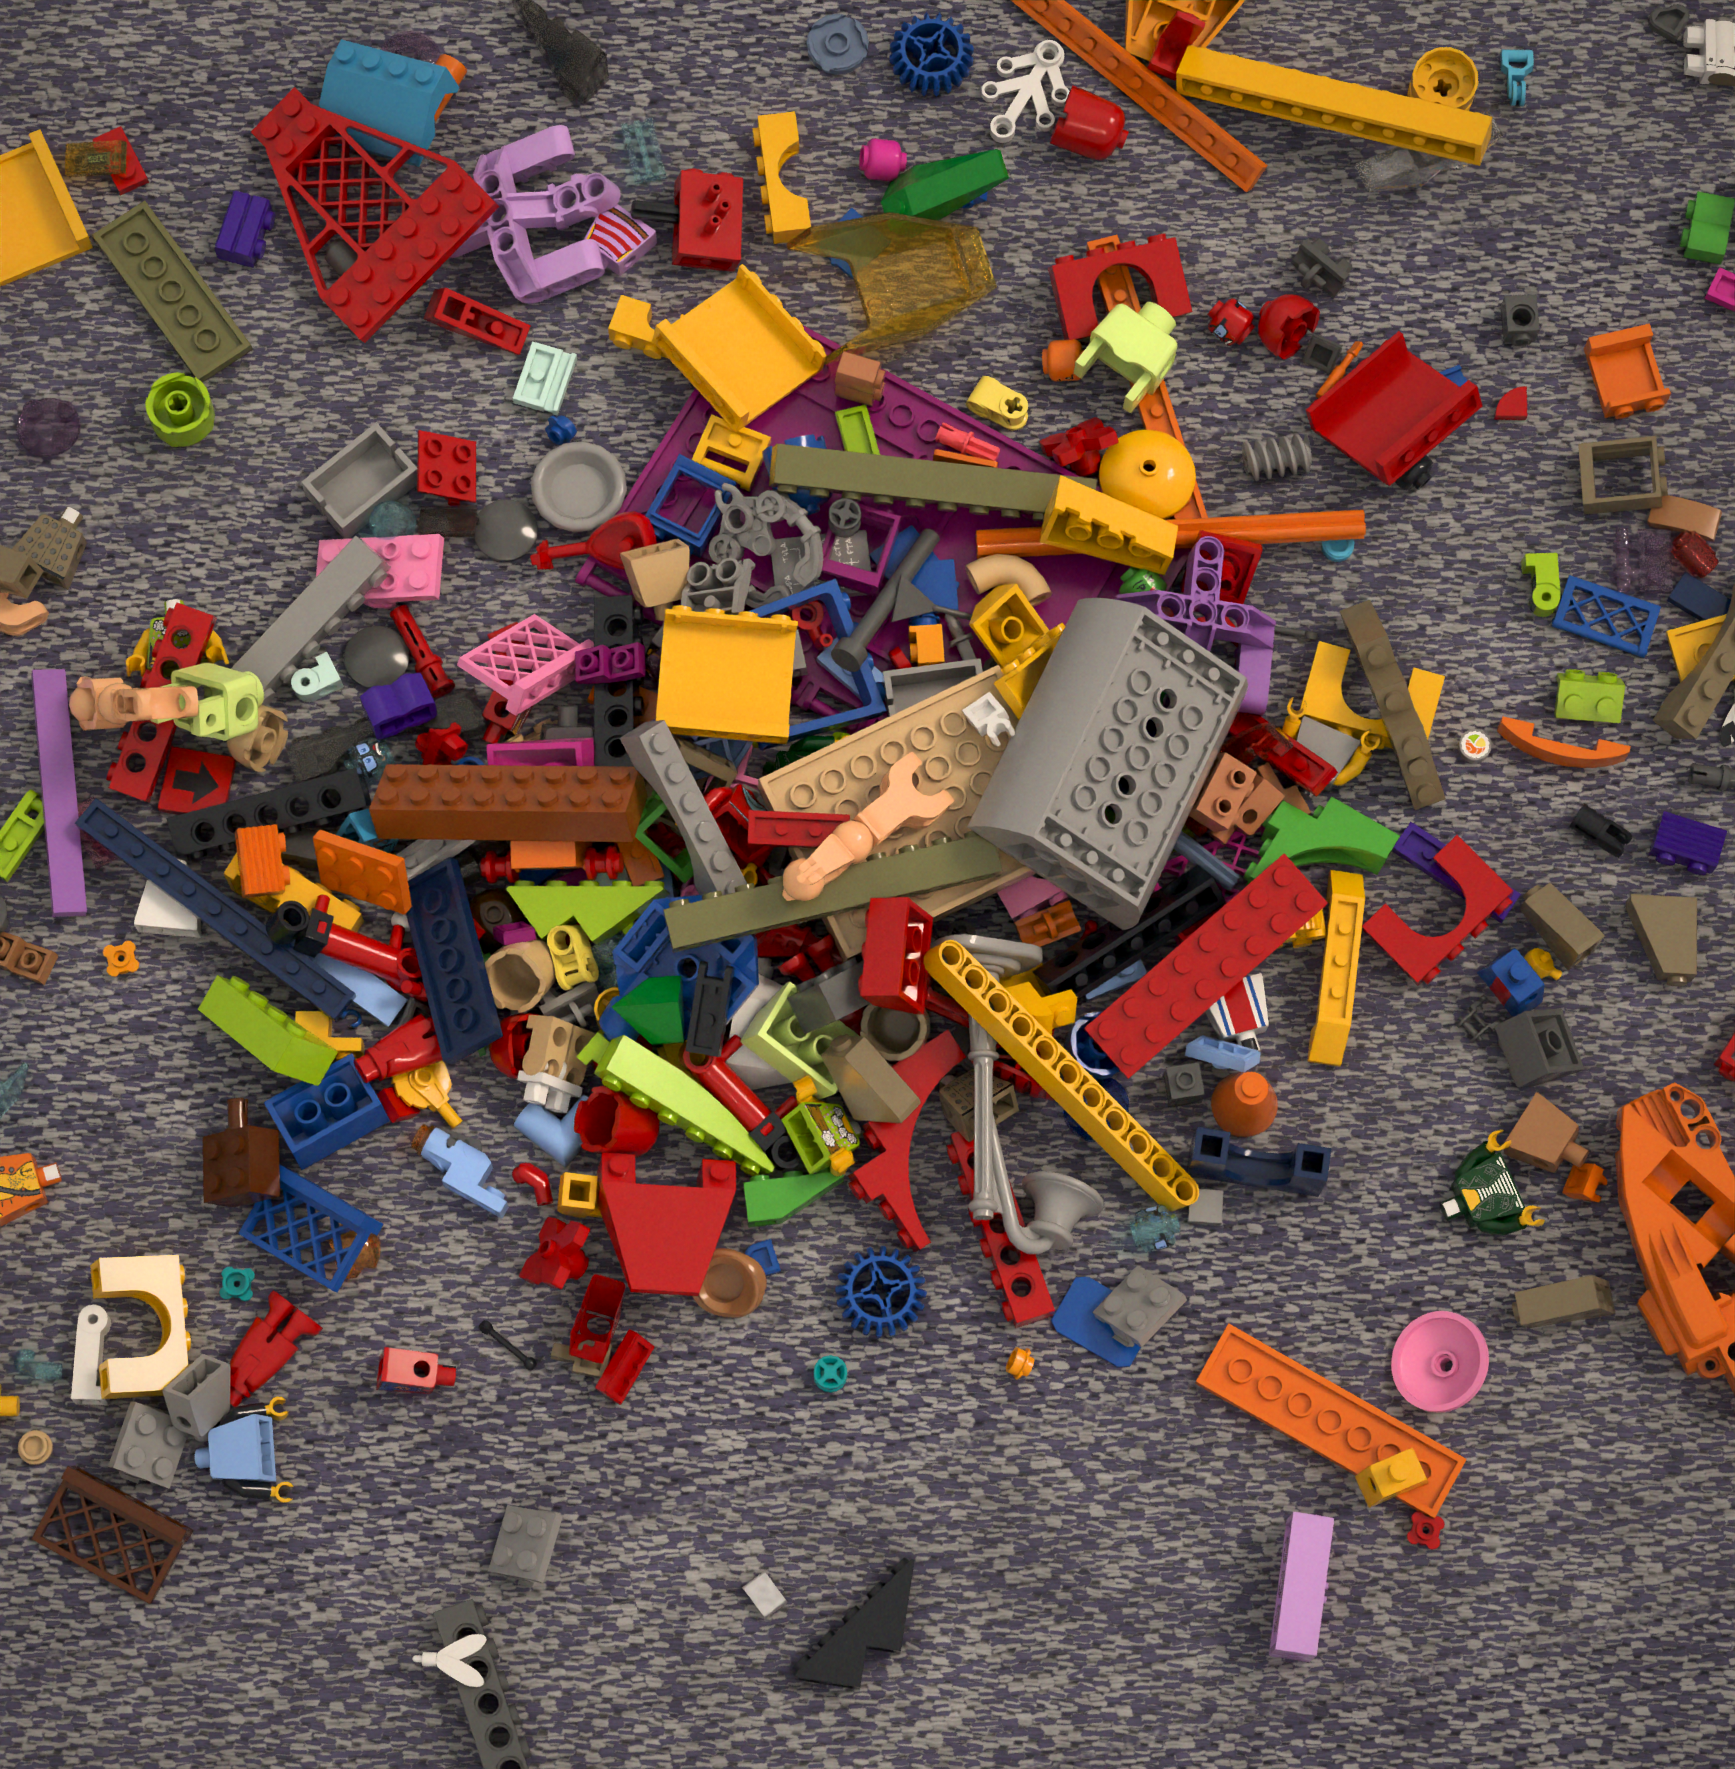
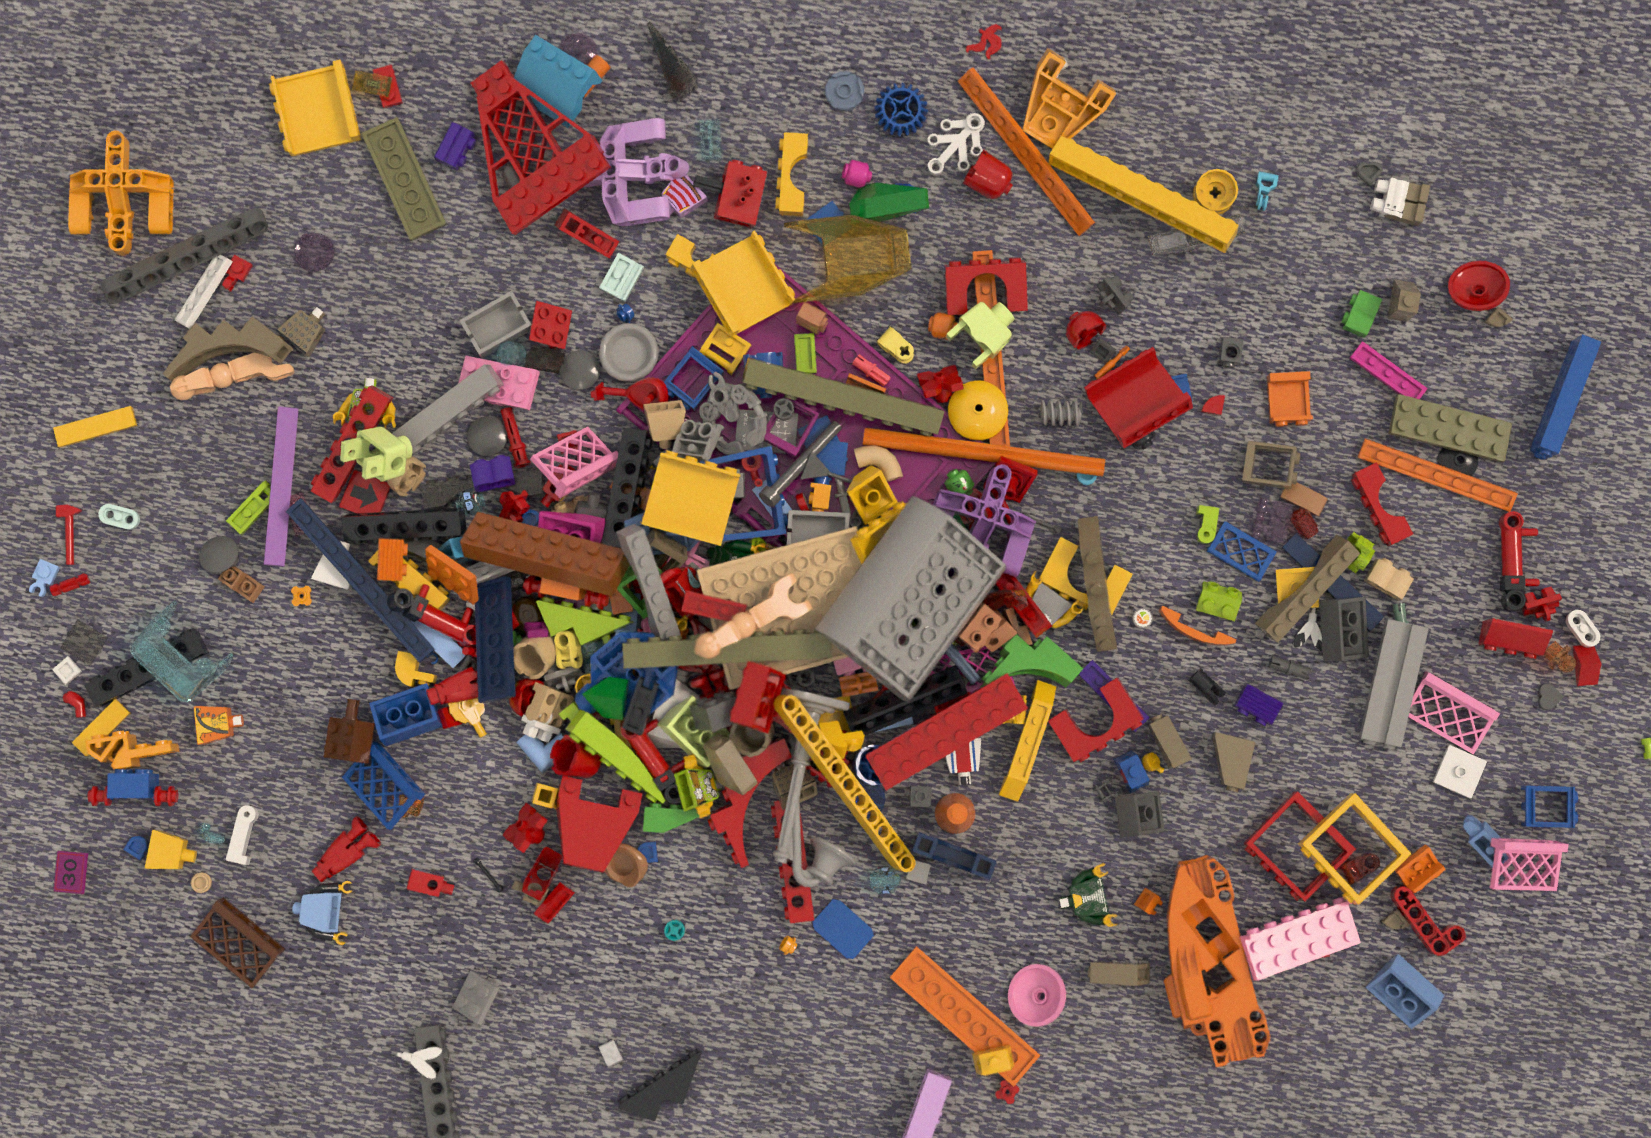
camera: 15 degrees right, 10 degrees up
(112, 704) = (317, 440): light nougat piece -> none
(148, 1446) = (267, 895): light grey piece -> none
(157, 1283) = (285, 851): arch -> none
(185, 426) = (385, 252): lime brick -> none
(199, 1396) = (300, 874): light grey torso -> none
(232, 1275) = (332, 802): teal plate -> none
(266, 1031) = (377, 662): lime wedge -> none
(318, 681) = (449, 445): light aqua leg -> none
(465, 1166) = (482, 762): light blue plate -> none
(536, 1178) = (522, 777): red arm -> none
(610, 665) = (623, 473): magenta slope -> none
(896, 1287) = (715, 904): blue gear -> none
(988, 718) = (842, 561): white plate -> none
(1107, 528) = (943, 447): yellow wedge -> none
(1139, 1307) = (865, 927): light grey piece -> none
(1173, 42) = (1051, 134): red bracket -> none
(1222, 1053) = (947, 783): light blue plate -> none
(1230, 321) = (1050, 320): red head -> none
(1545, 1137) = (1130, 870): medium nougat torso -> none

